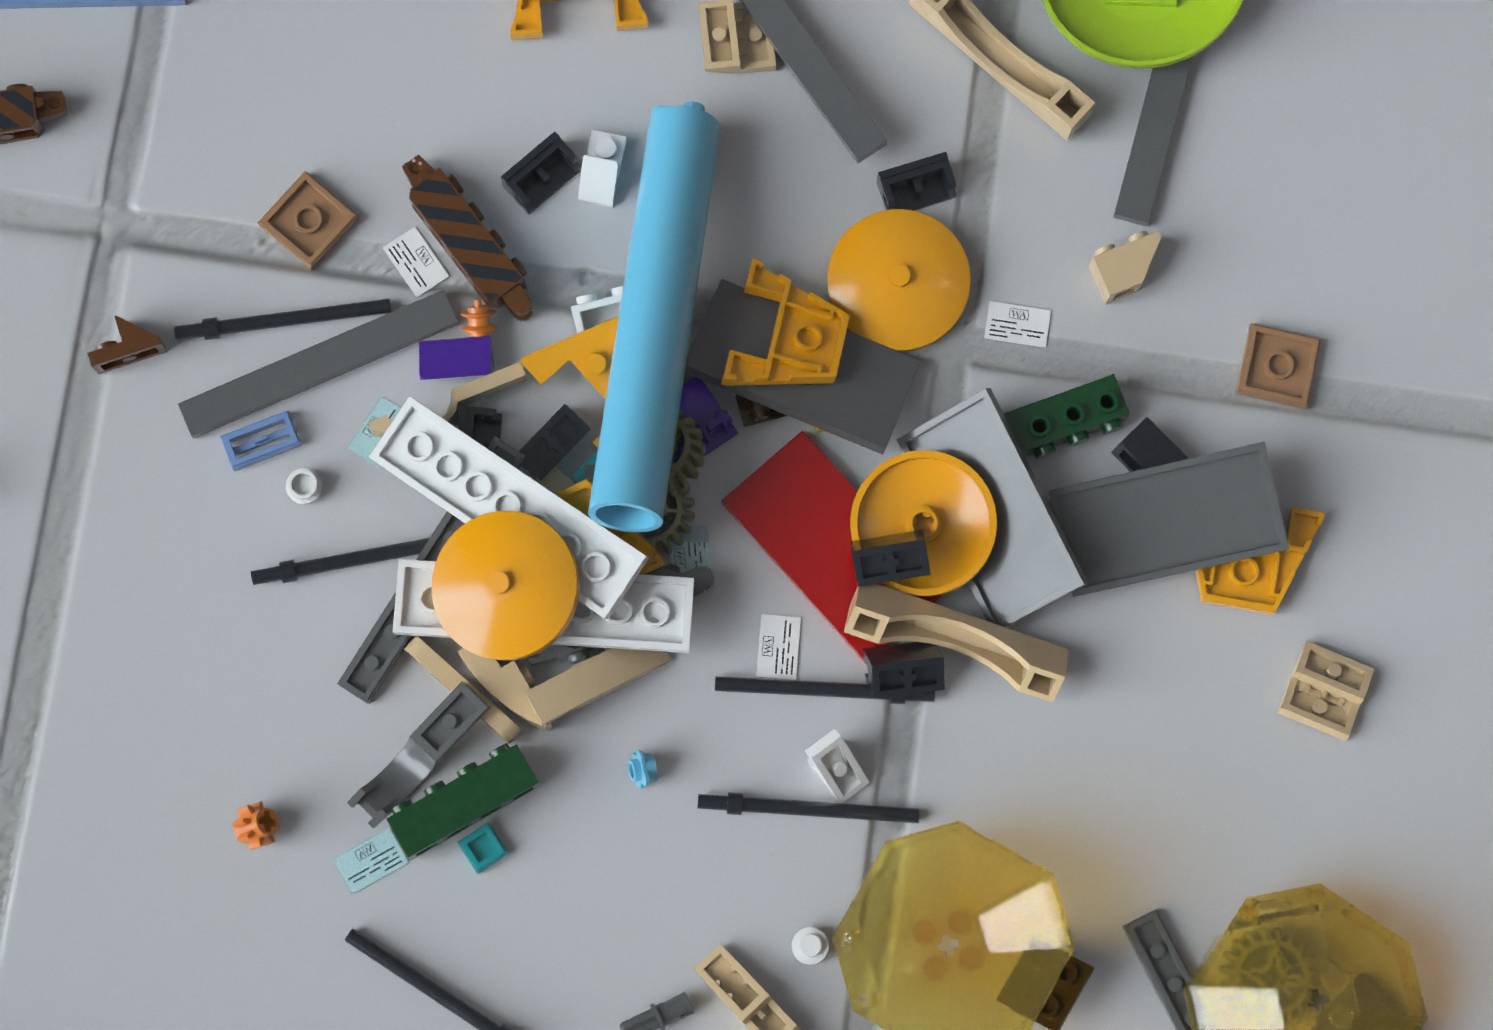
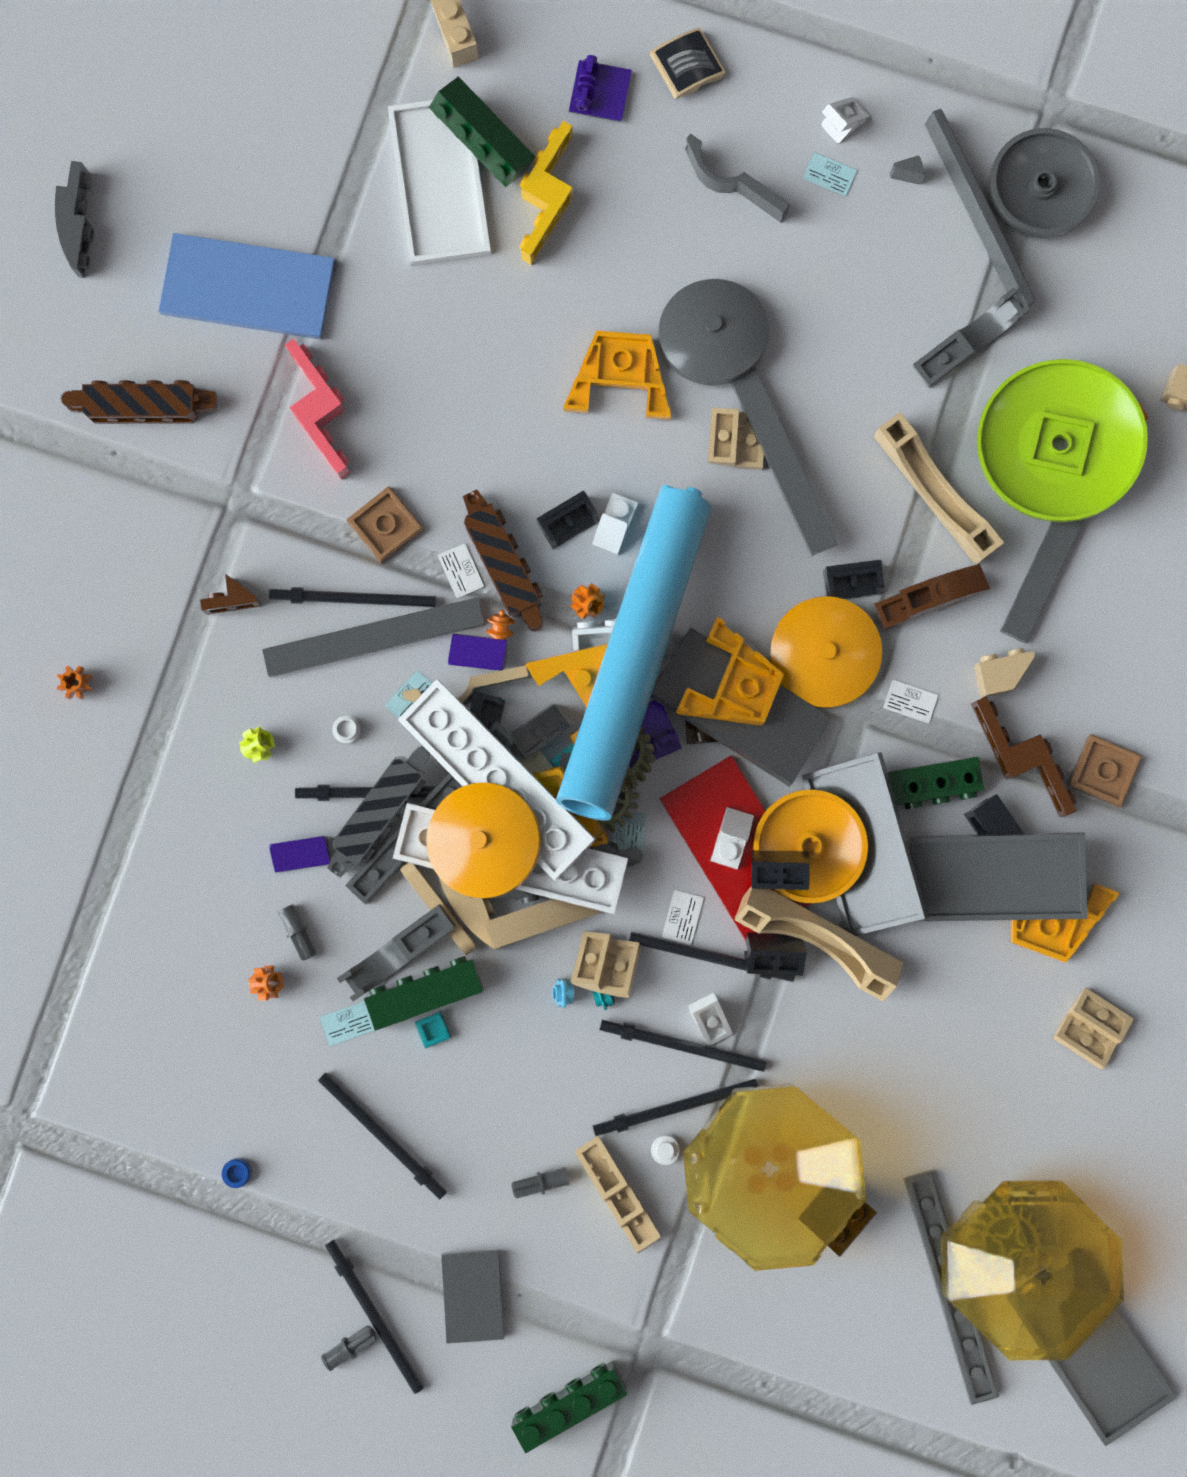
camera: 15 degrees right, 5 degrees up
(192, 524) = (257, 744): none -> neon yellow gear
(198, 89) = (318, 407): none -> coral bracket
(265, 453) = (324, 698): medium blue tile -> none
(271, 654) = (300, 854): none -> dark purple slope
(285, 755) = (297, 932): none -> dark grey axle
(362, 578) = (377, 810): none -> dark grey hinge
(584, 269) = (587, 601): none -> orange gear
(691, 721) = (606, 964): none -> tan slope
(695, 763) = (603, 1000): none -> teal plate
(748, 920) = (622, 1122): none -> black bar
(822, 533) = (732, 838): none -> white slope
(1017, 185) = (932, 595): none -> reddish brown slope
(1173, 365) = (1024, 756): none -> reddish brown bracket

